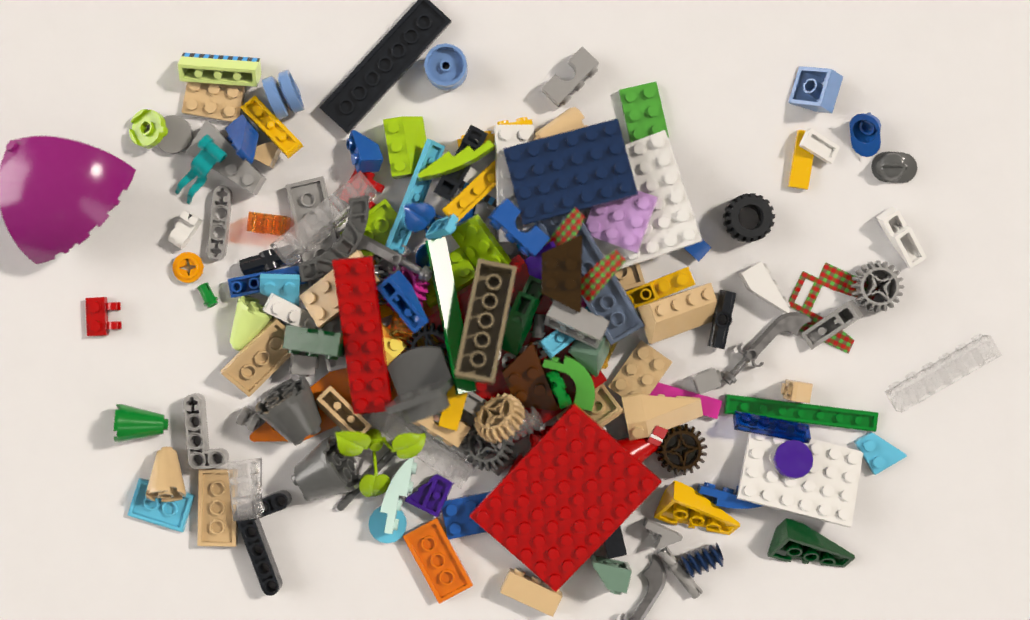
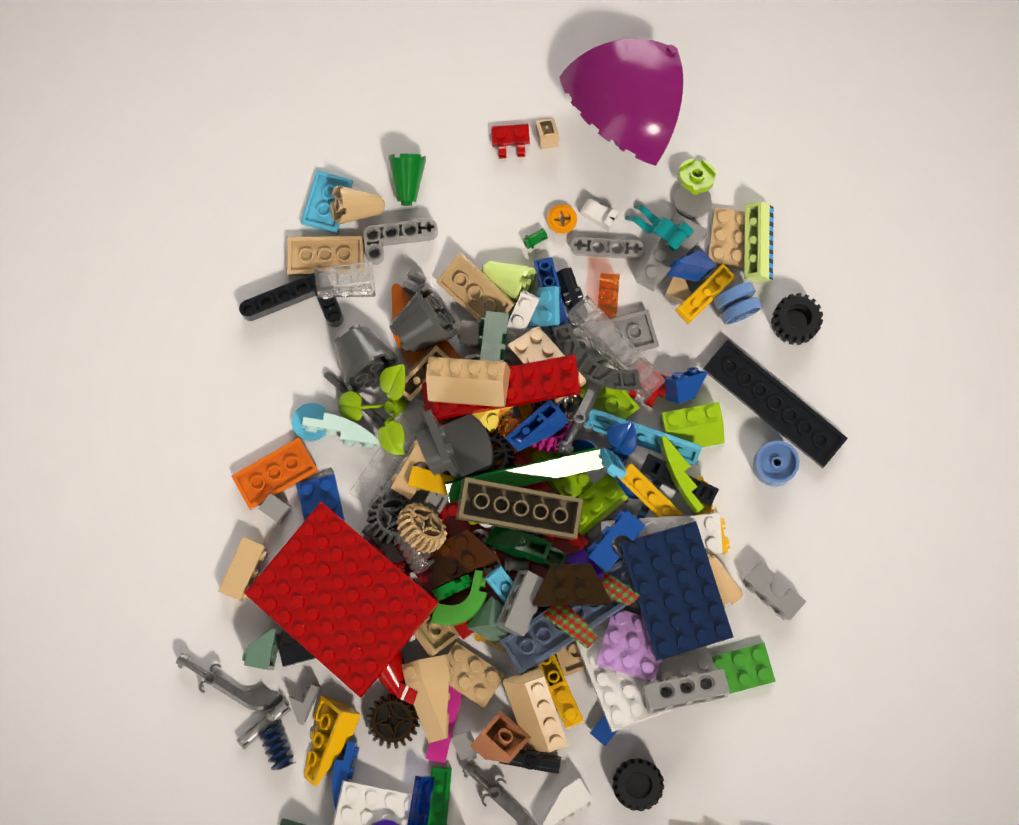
camera: 85 degrees right, 10 degrees down
(96, 278) = (547, 133): none -> tan slope
(296, 21) = (801, 304): none -> black tyre
(356, 369) = (467, 381): none -> tan slope
(431, 495) = (340, 465): dark purple wing -> none
(473, 560) = (275, 508): none -> light grey panel
(666, 136) = (656, 702): none -> light grey brick
(704, 347) = (500, 739): none -> nougat slope

